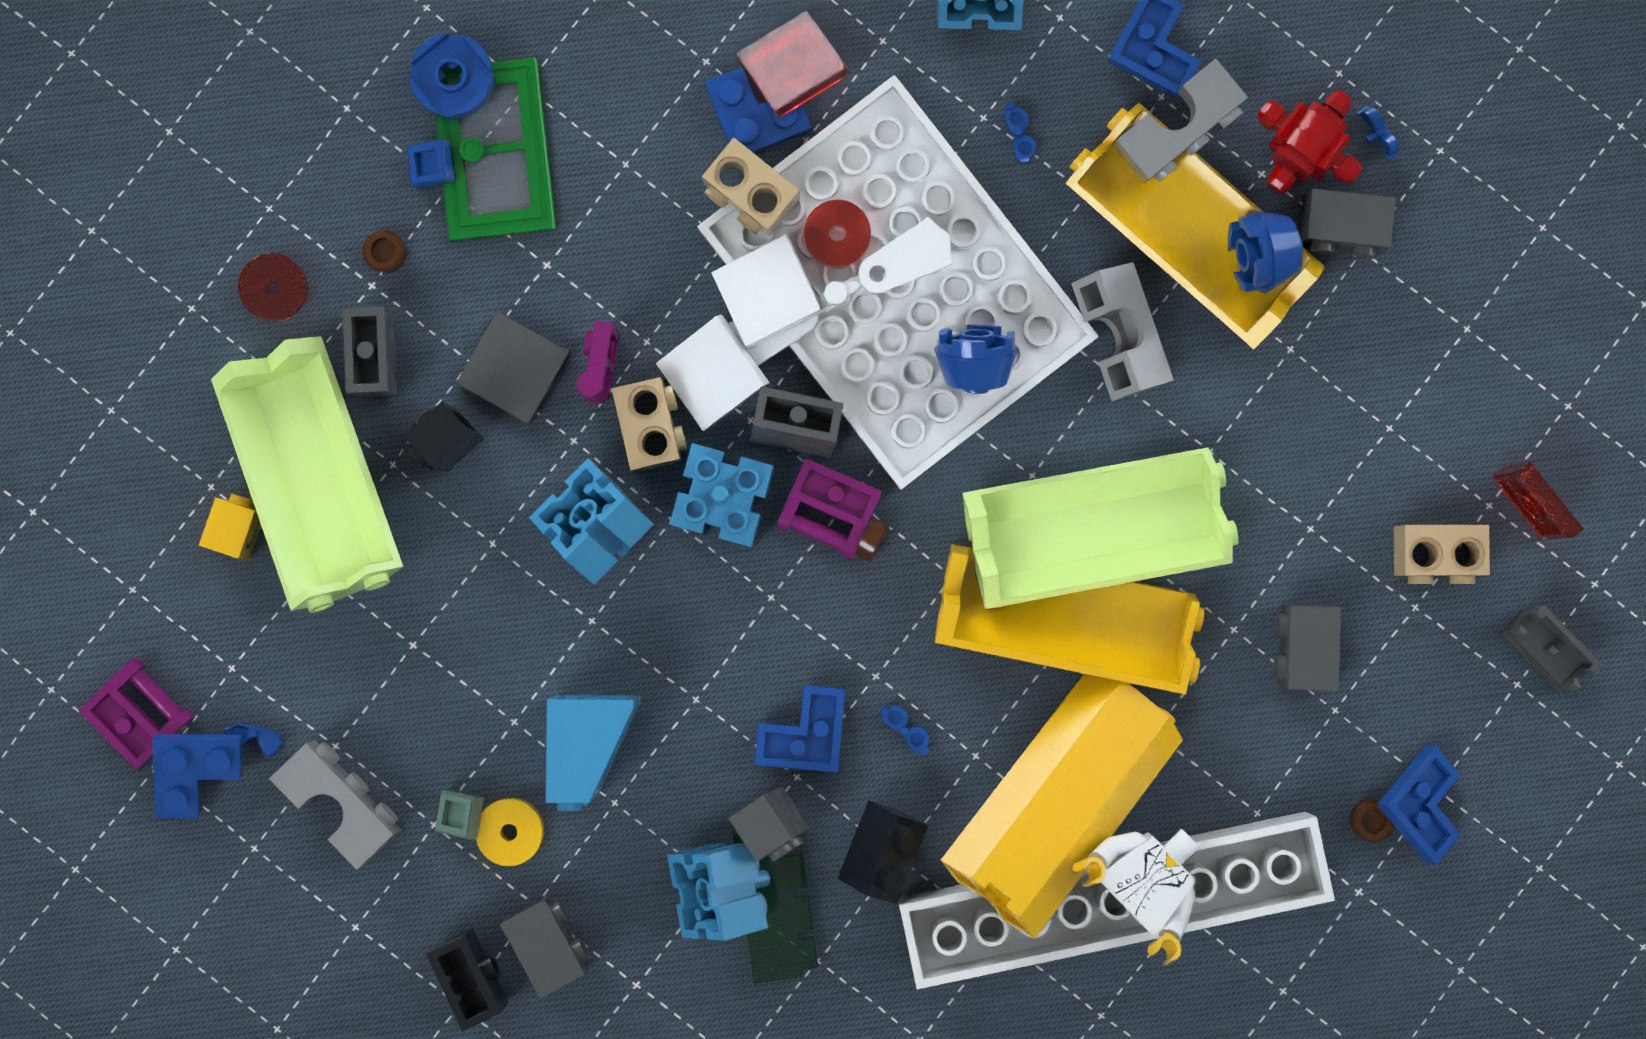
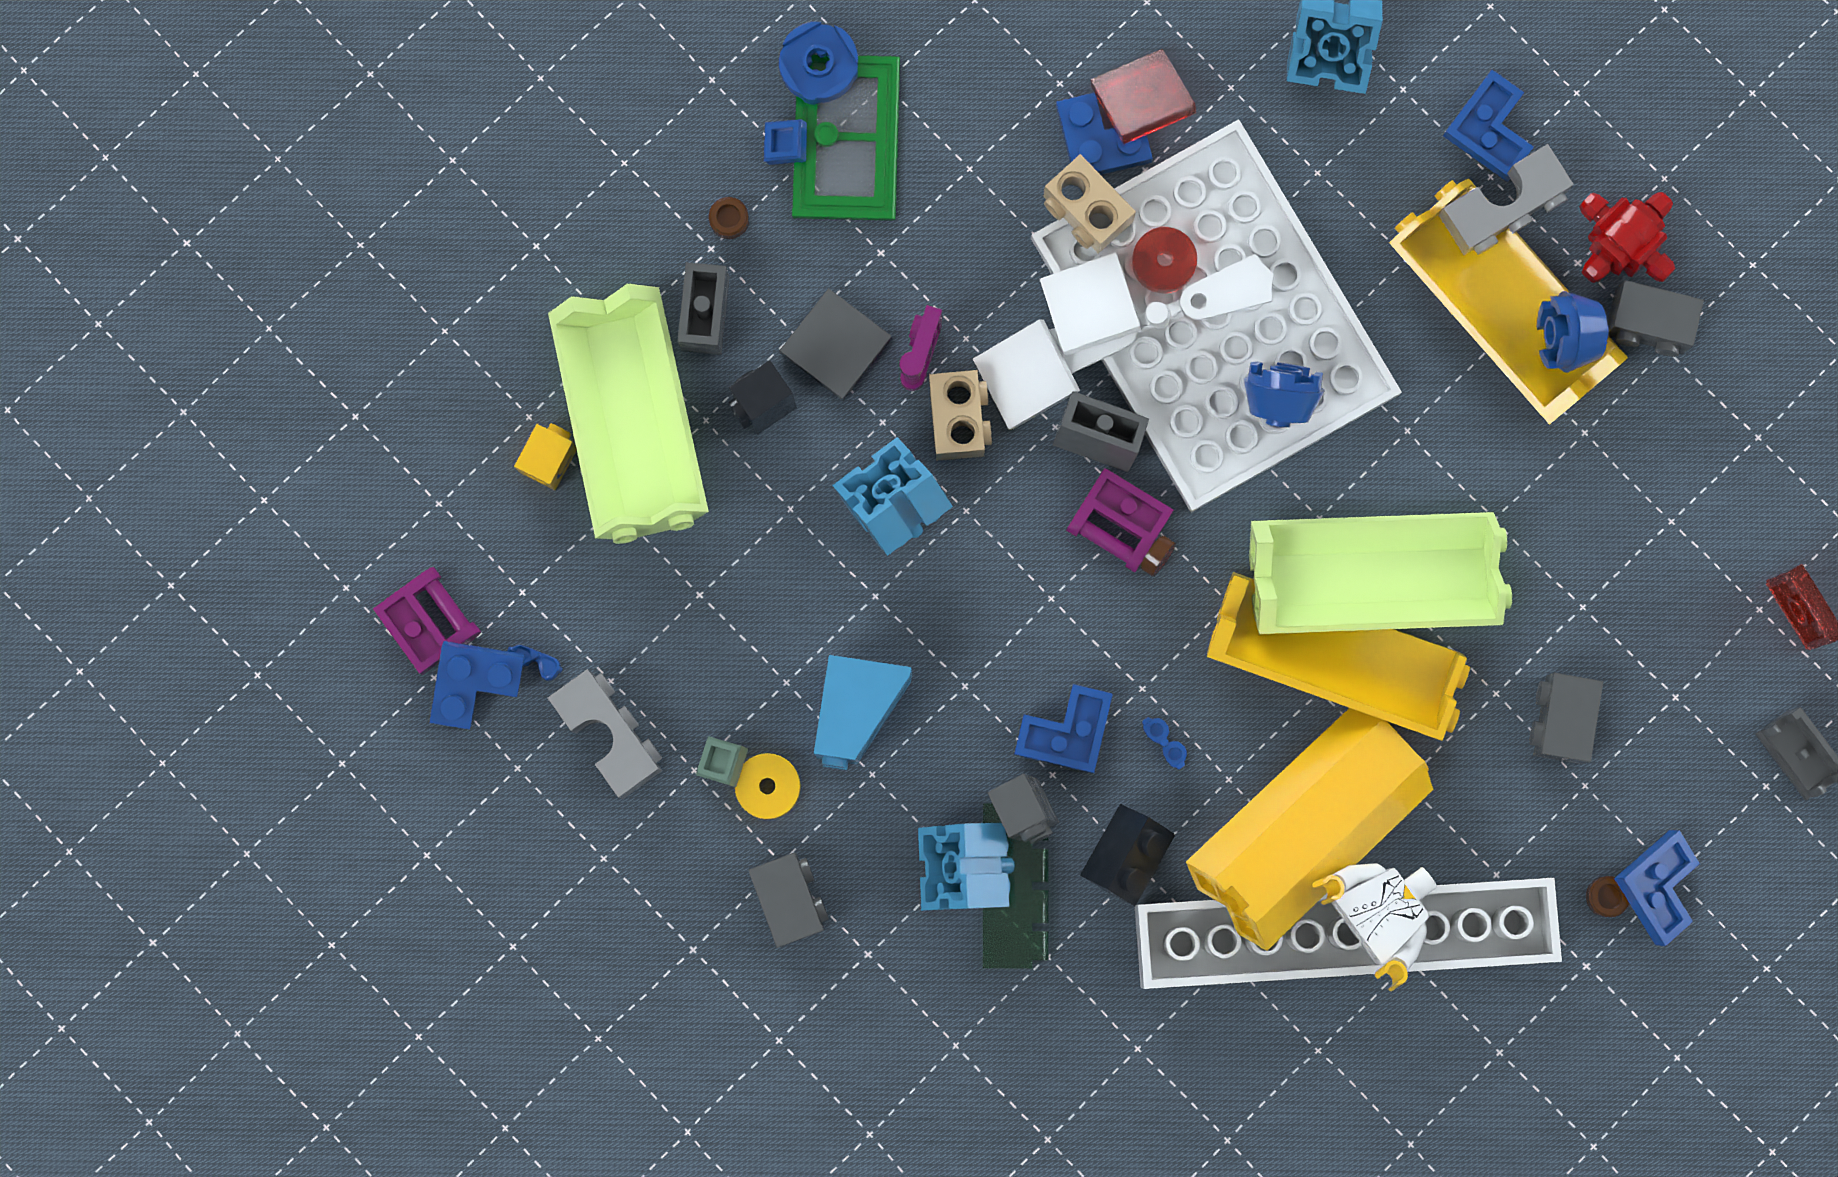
camera: 10 degrees right, 5 degrees down
(254, 284) = (612, 219): clear red piece -> none
(468, 979) = (709, 918): black brick -> none
(722, 495) = (1019, 492): dark azure brick -> none
(1017, 122) = (1349, 181): blue piece -> none
(1119, 301) = (1426, 362): light grey arch -> none
(1376, 123) = (1693, 228): blue piece -> none
(1441, 546) = (1707, 635): tan brick -> none

